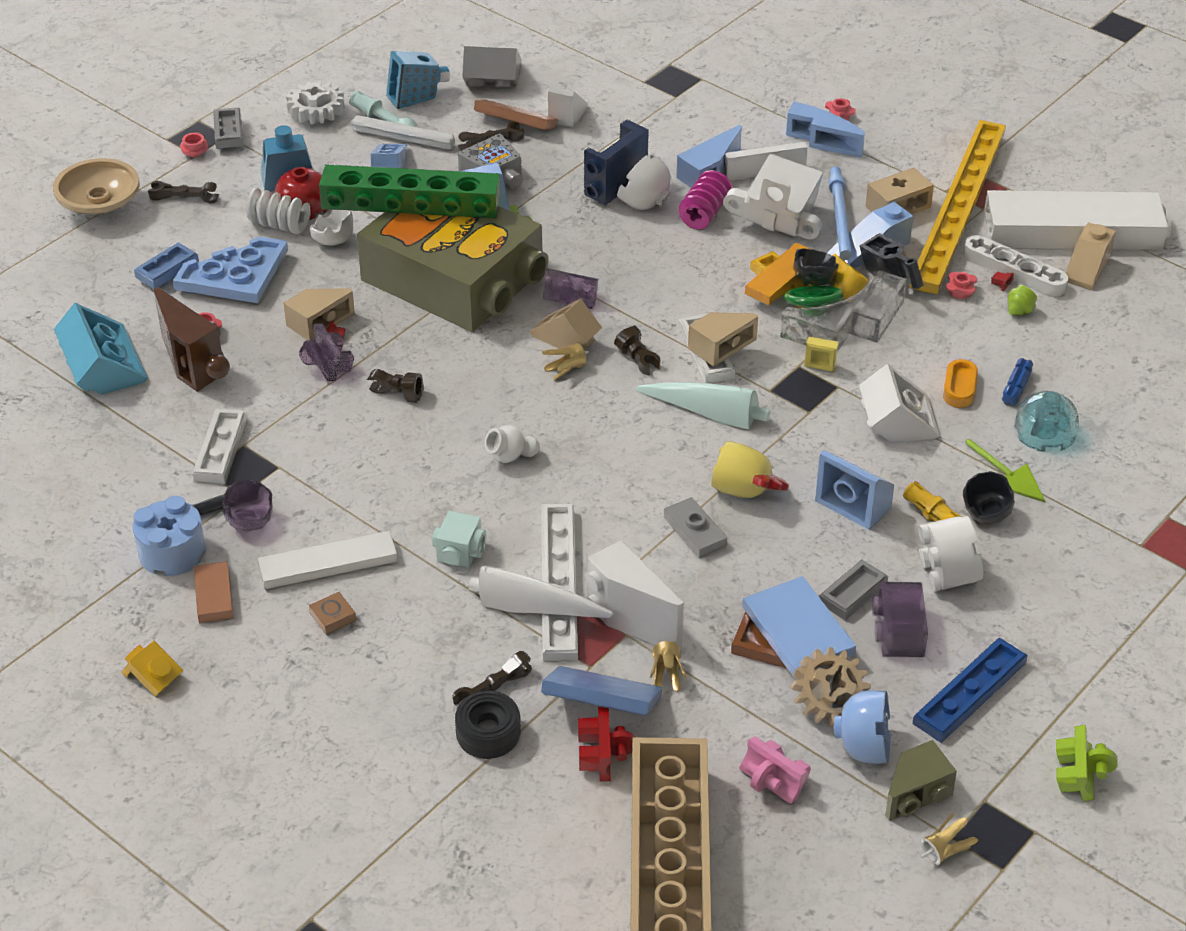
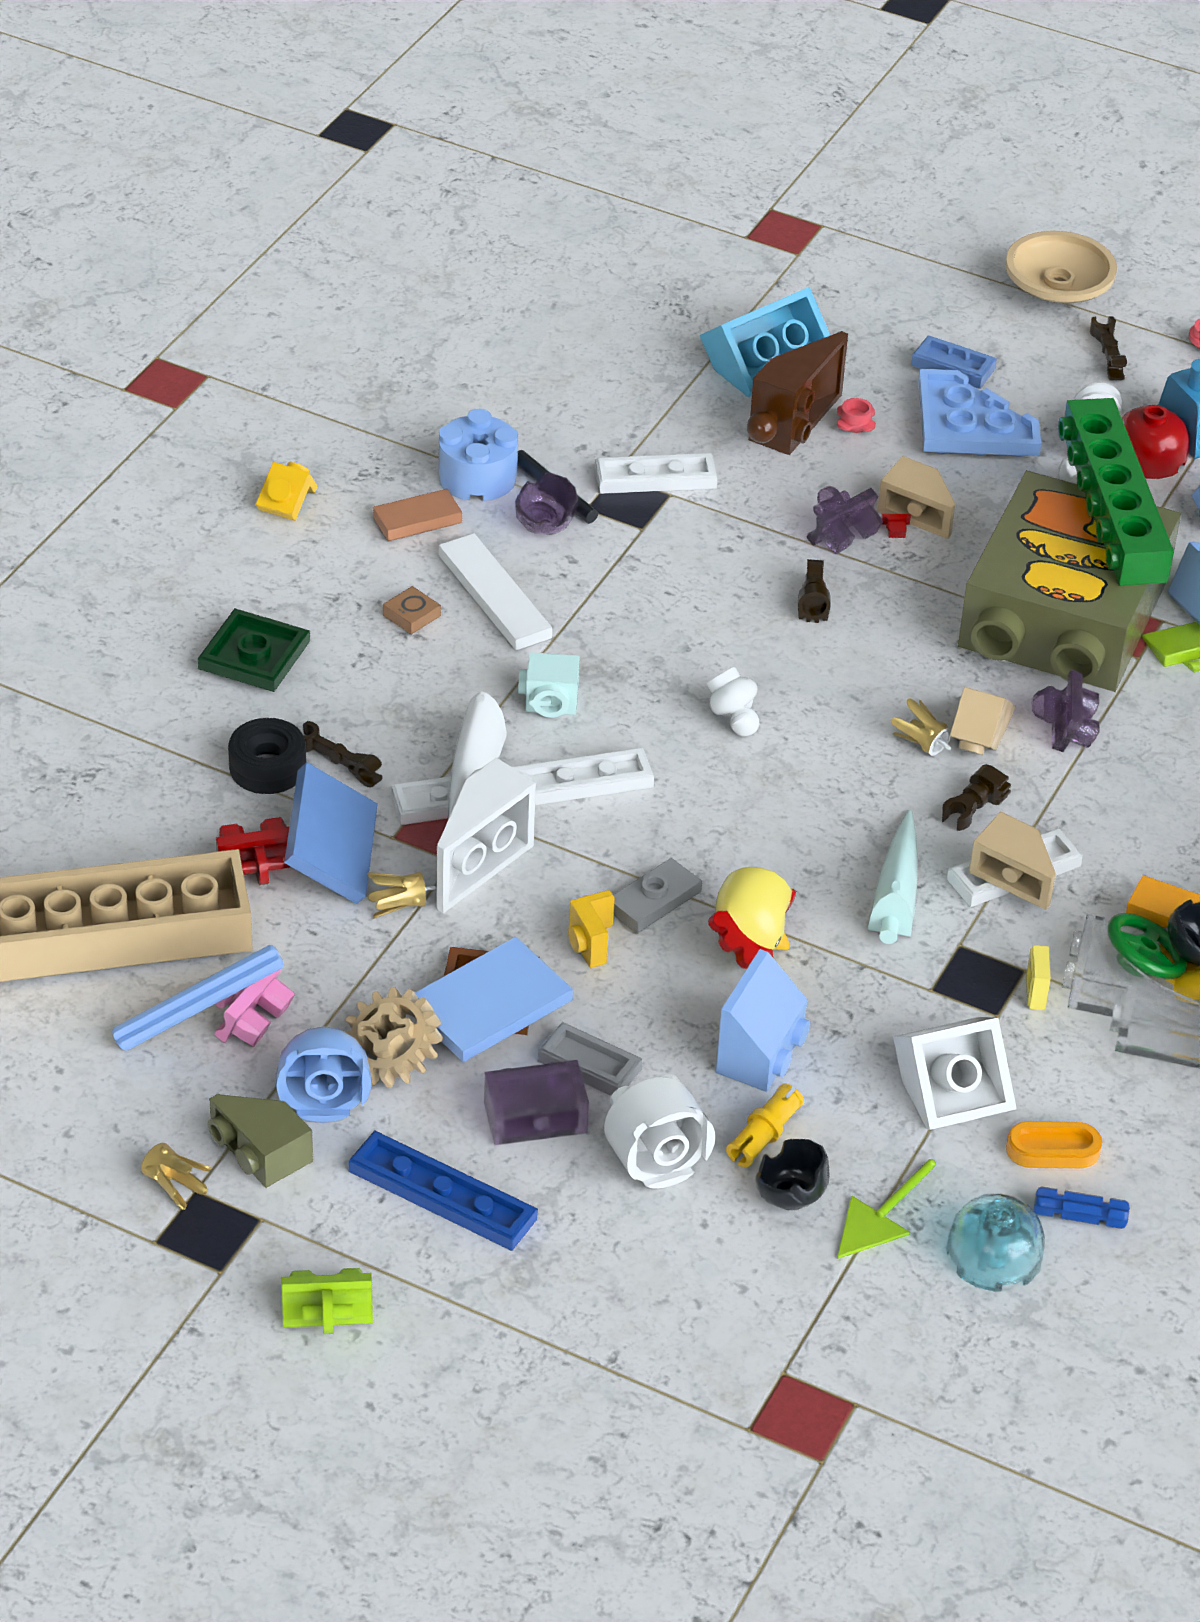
camera: 75 degrees right, 0 degrees up
(352, 717) = (254, 650): none -> dark green plate
(730, 563) = (588, 924): none -> yellow bracket
(781, 793) = (198, 997): none -> light blue axle

